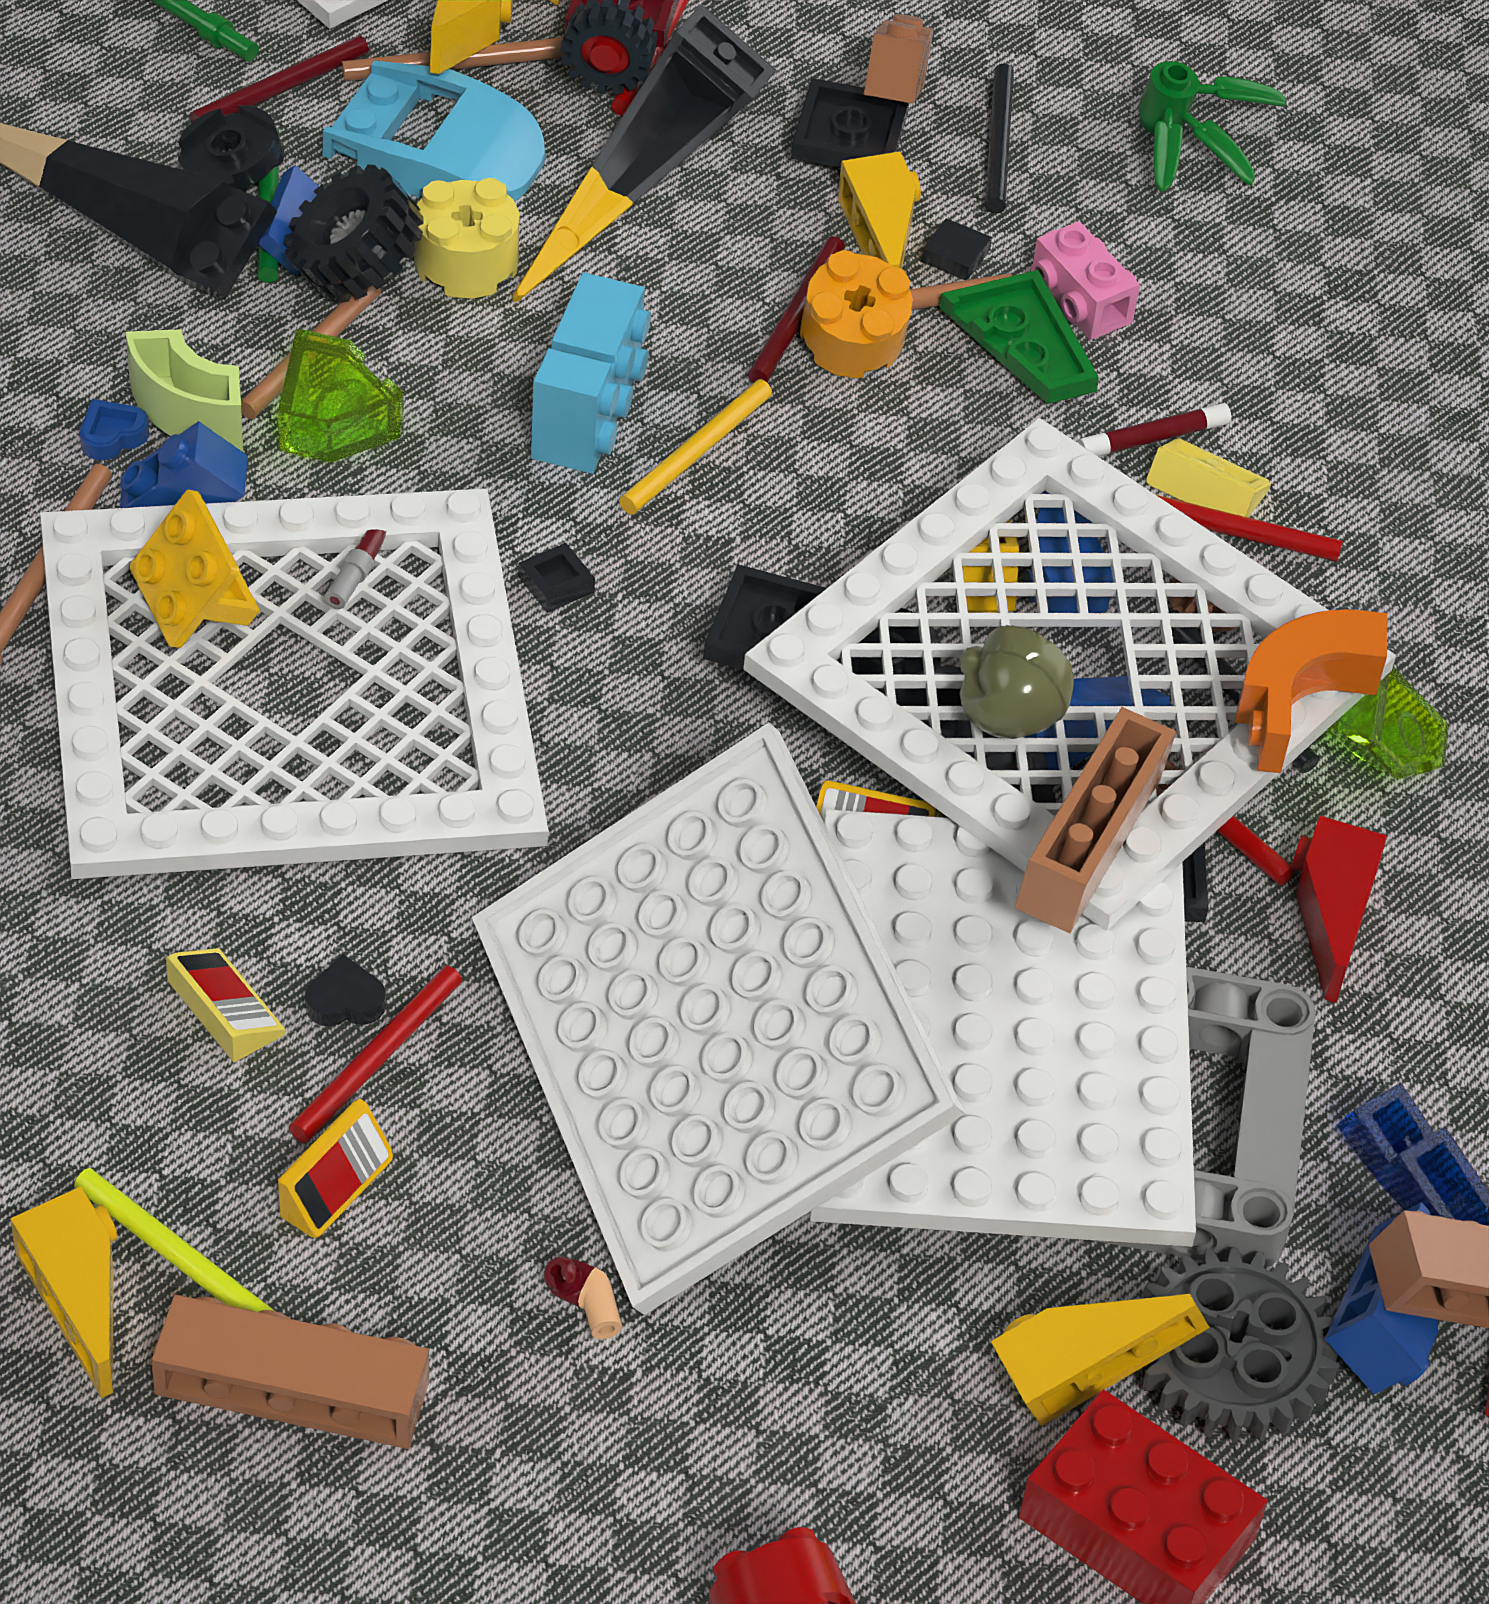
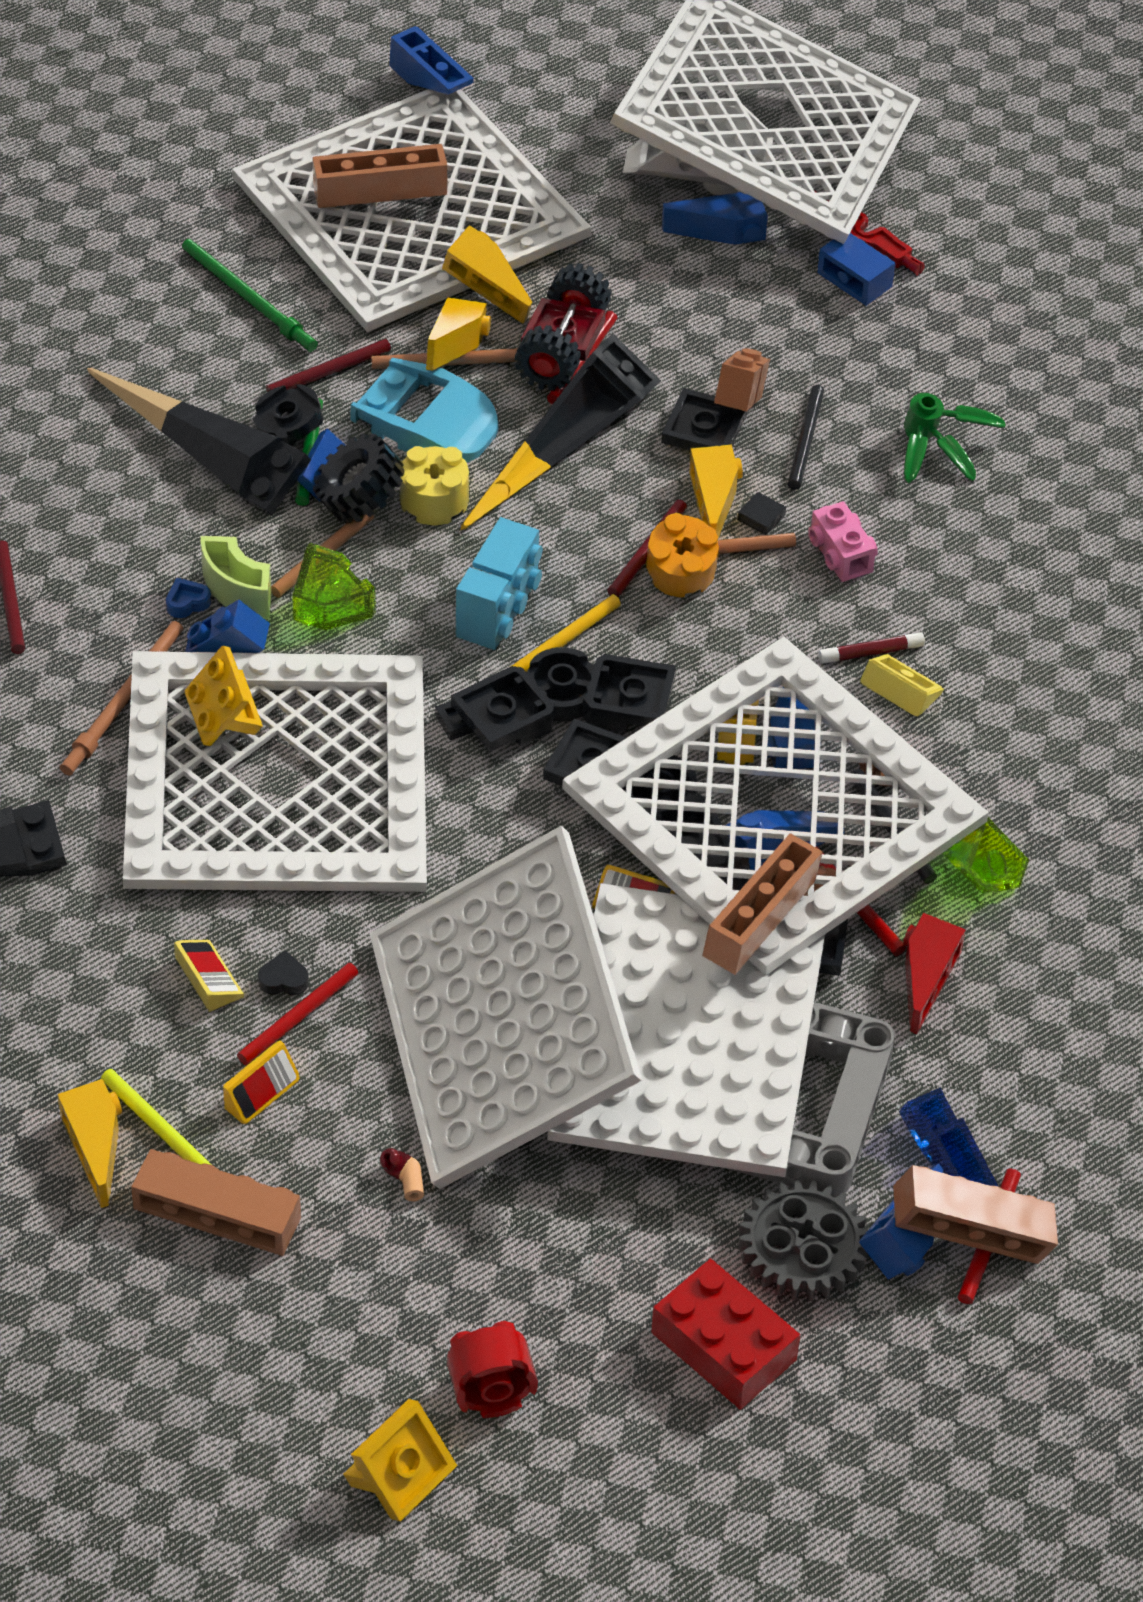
camera: 10 degrees right, 0 degrees up
(355, 568) = (327, 702): light grey piece -> none
(711, 521) = (564, 688): none -> black plate
(1015, 683) = (729, 812): olive piece -> none
(1026, 333) = (796, 575): green wing -> none
(1082, 1349) = (697, 1233): yellow slope -> none
(1259, 530) = (917, 717): red bar -> none
(1304, 657) = (918, 810): orange arch -> none

